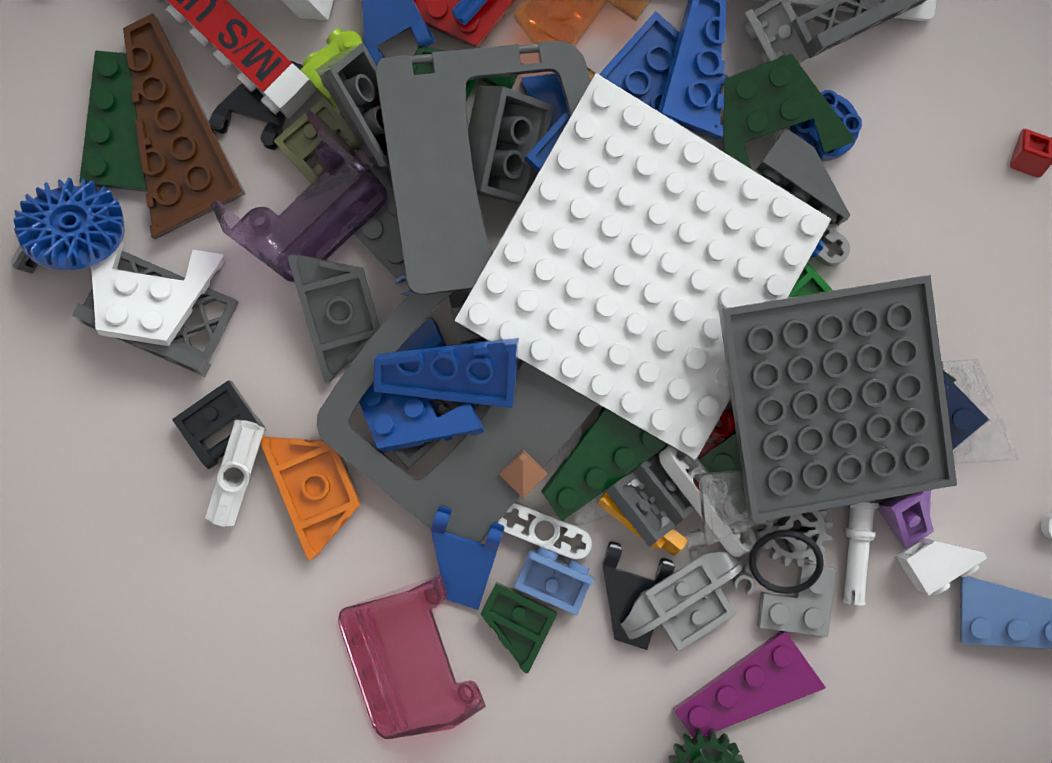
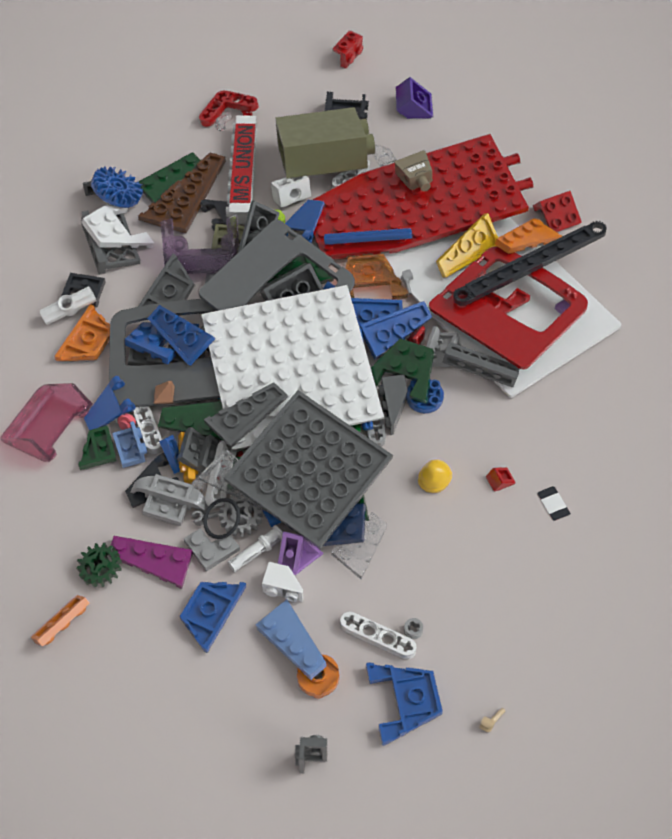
camera: 45 degrees right, 30 degrees down
(511, 552) = (124, 421): none -> coral plate
(614, 535) = (171, 452): none -> blue tile
(675, 407) = (241, 418): none -> dark grey wing
(732, 50) = (417, 336): none -> red slope
(892, 680) = (210, 609): none -> blue wing
(957, 232) = (434, 476): none -> yellow hat

